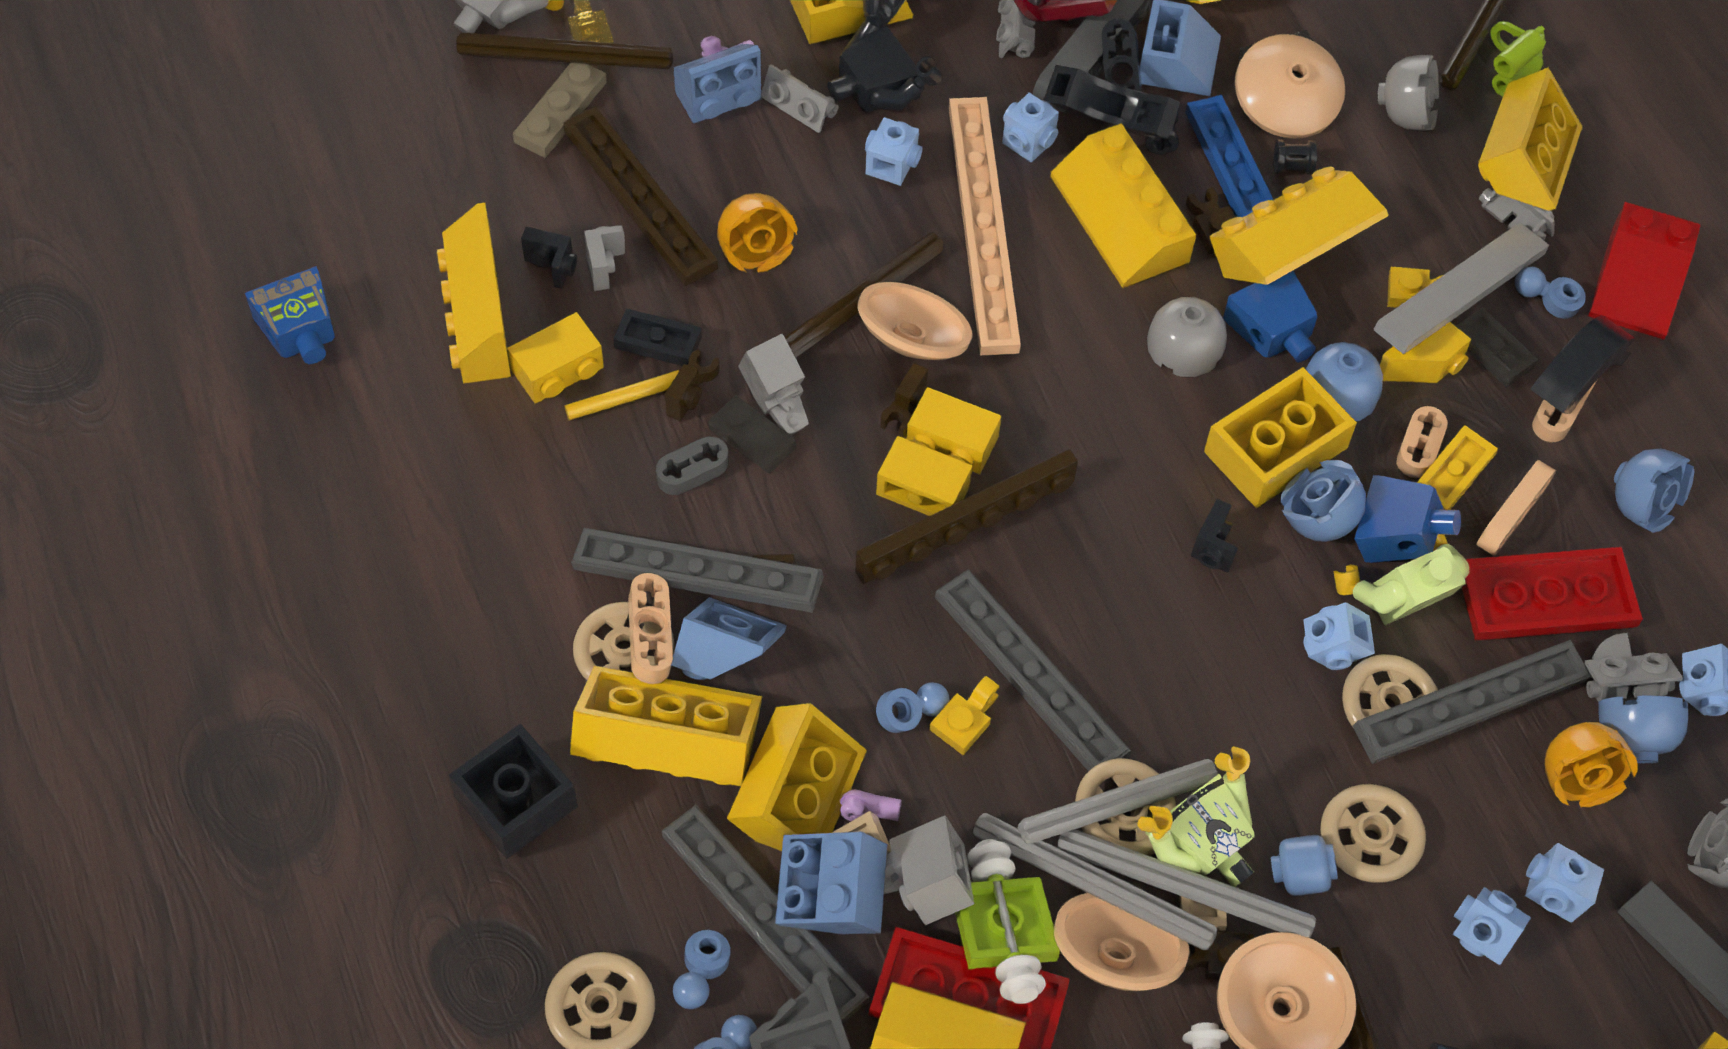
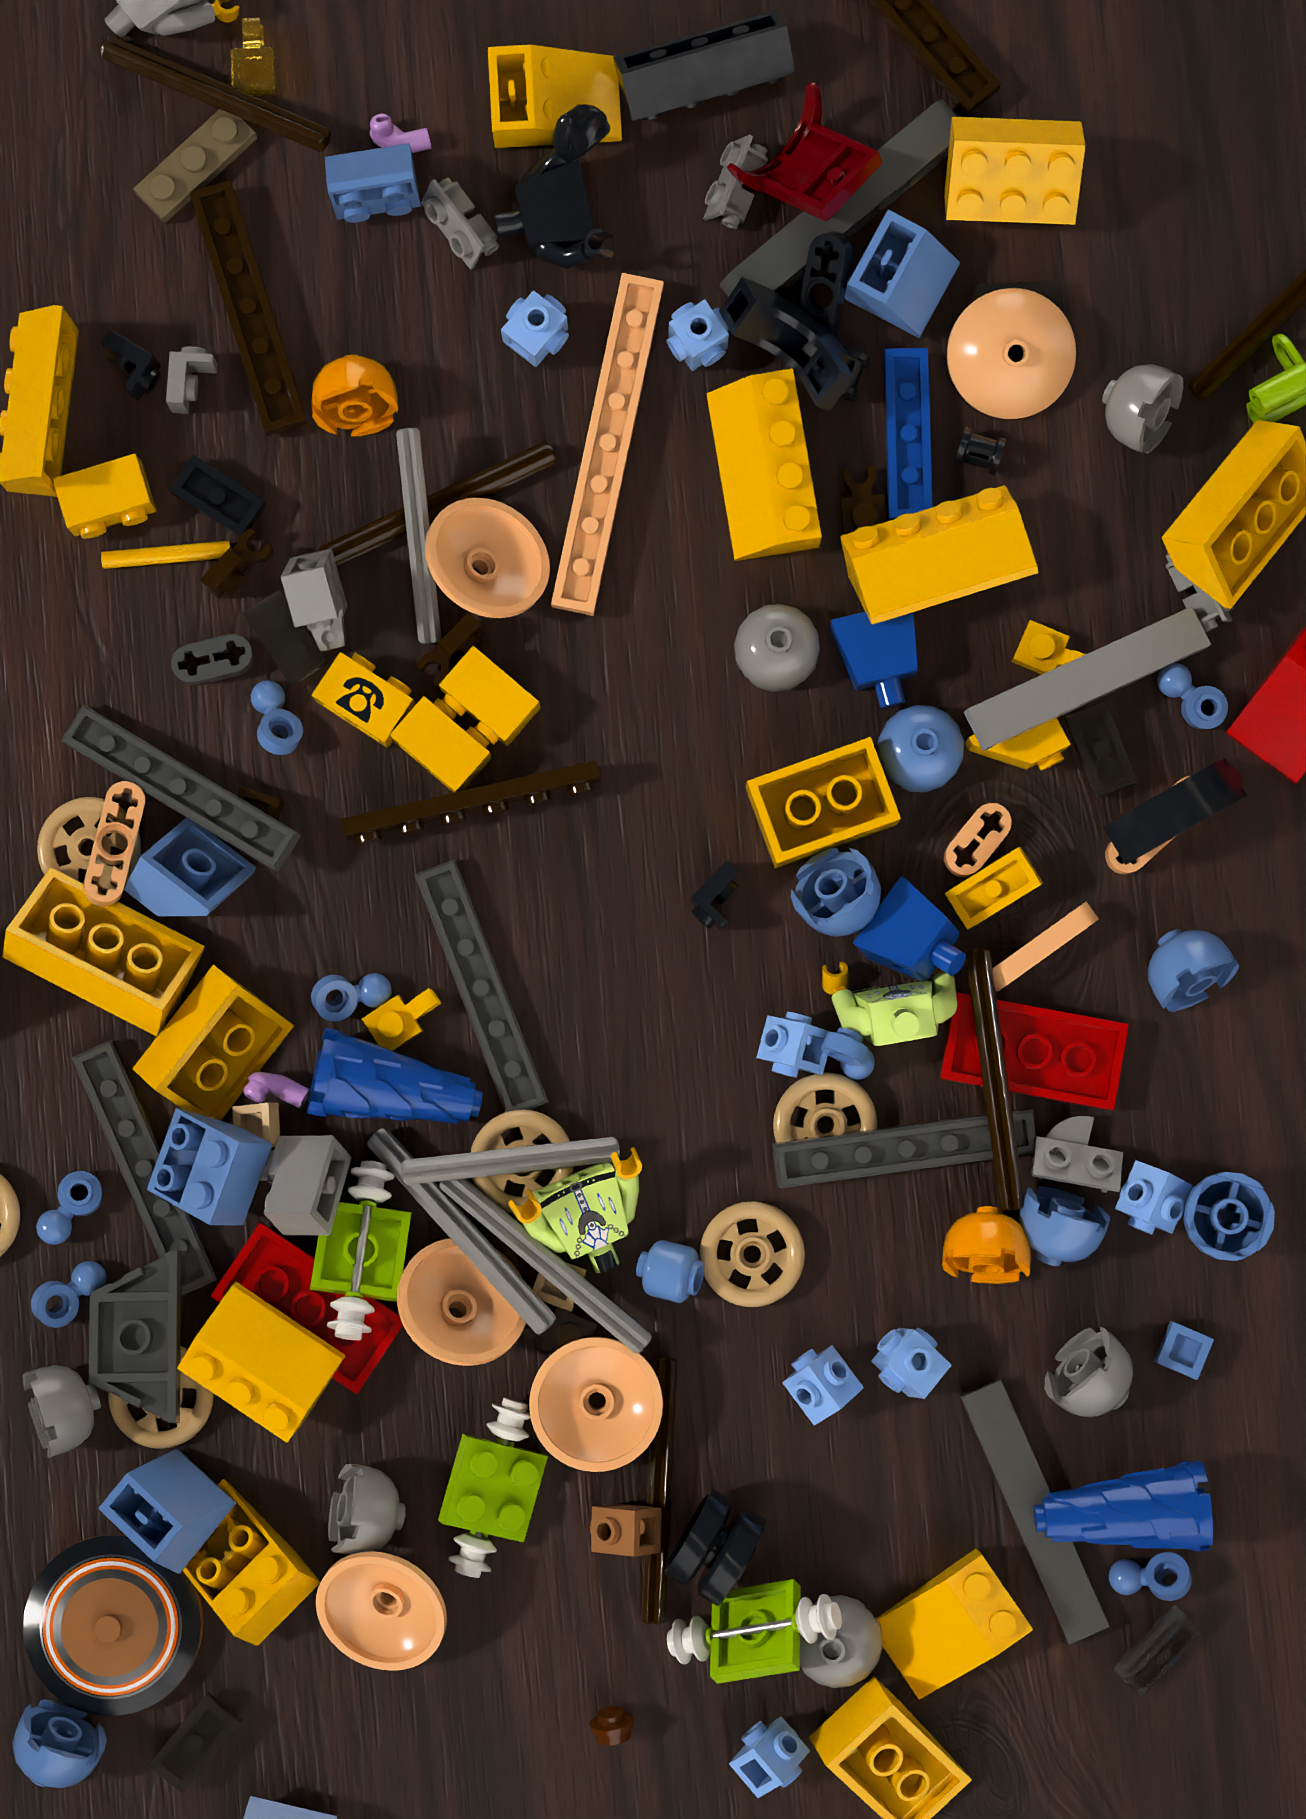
camera: 20 degrees right, 25 degrees up
(770, 502) = (268, 699): none -> medium blue plate
(841, 459) = (364, 698): none -> yellow brick
(848, 322) = (417, 527): none -> light grey axle
(969, 766) = (373, 1082): none -> blue cone
(1390, 623) = (854, 1057): none -> medium blue plate
(1530, 619) = (995, 1079): none -> dark brown axle

